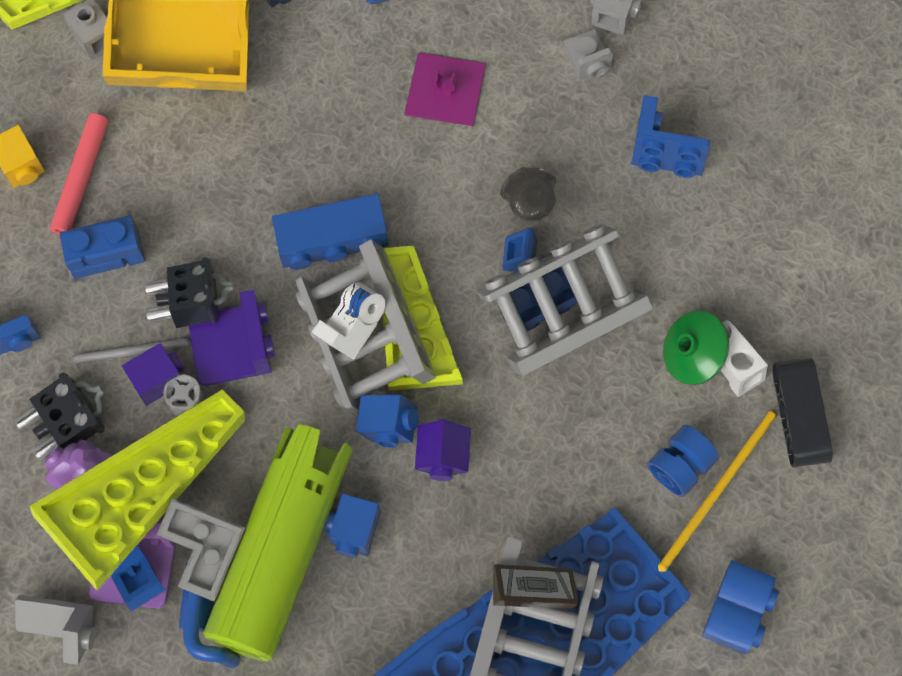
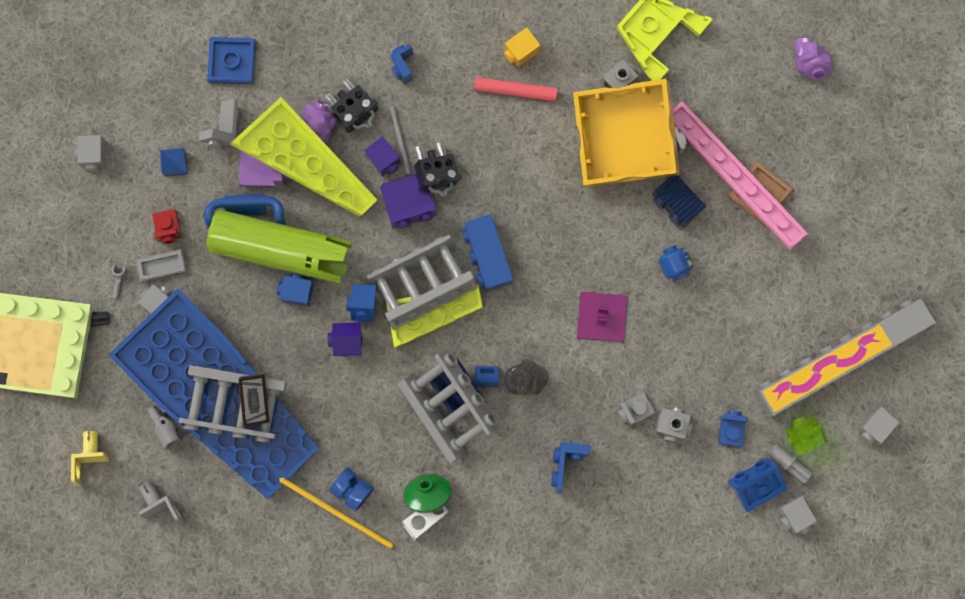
camera: 80 degrees right, 10 degrees up
(102, 247) = (463, 111): blue brick -> none
(136, 580) = (249, 168): blue bracket -> none
(180, 389) = (370, 172): light grey wheel -> none
(212, 544) = (272, 206): light grey tile -> none
(352, 320) = (418, 272): white leg -> none
(739, 608) = (262, 529): blue brick -> none
(804, 412) = (391, 564): black beam -> none

